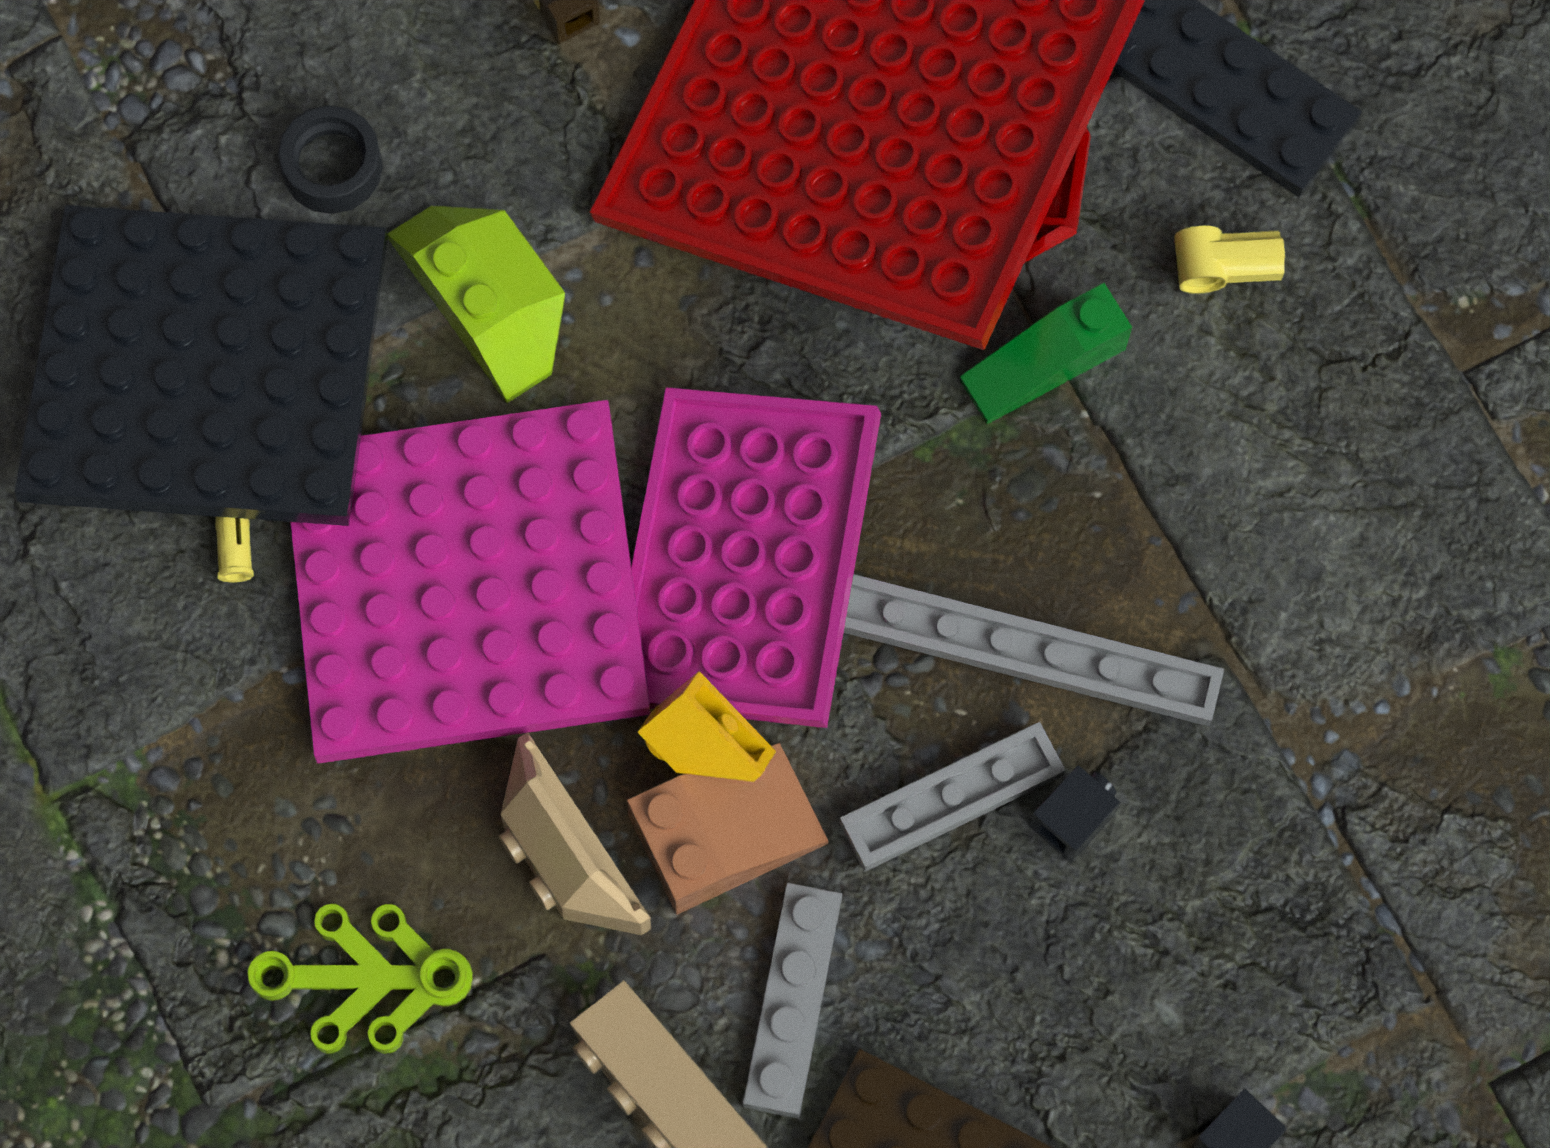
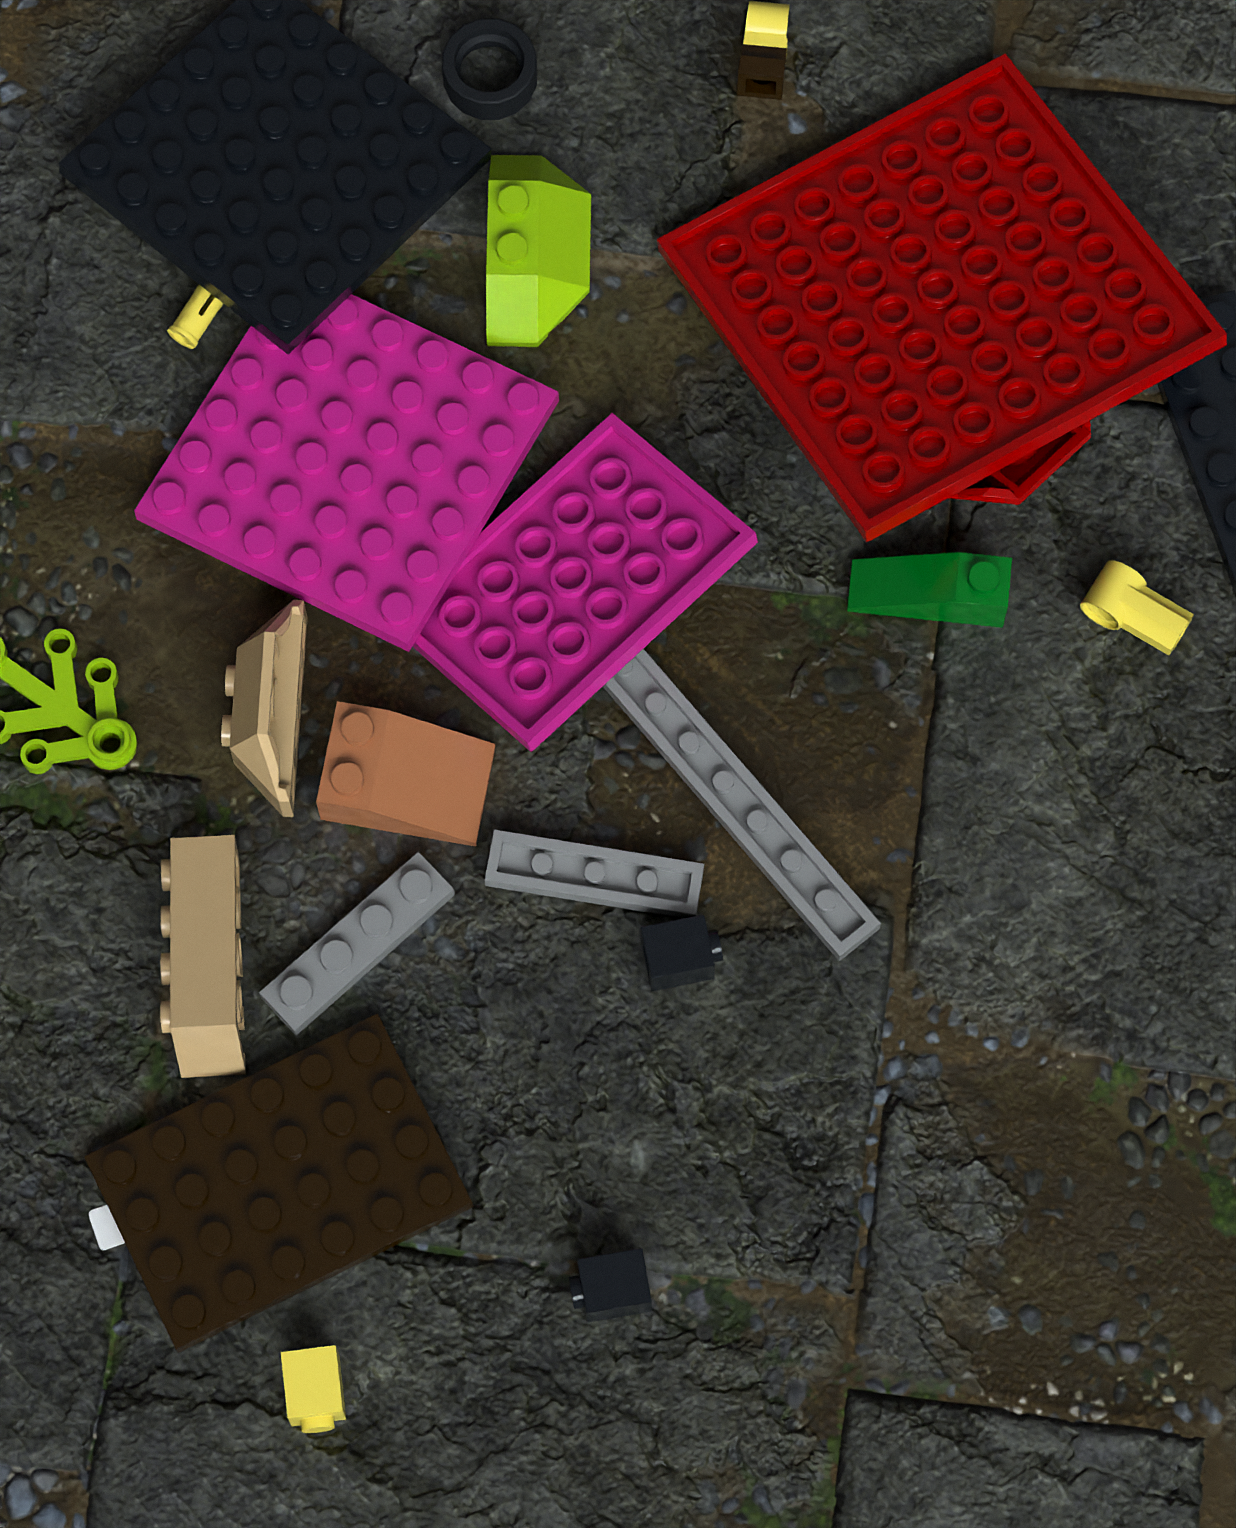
camera: 40 degrees right, 0 degrees up
(705, 734) = (434, 693): yellow slope -> none

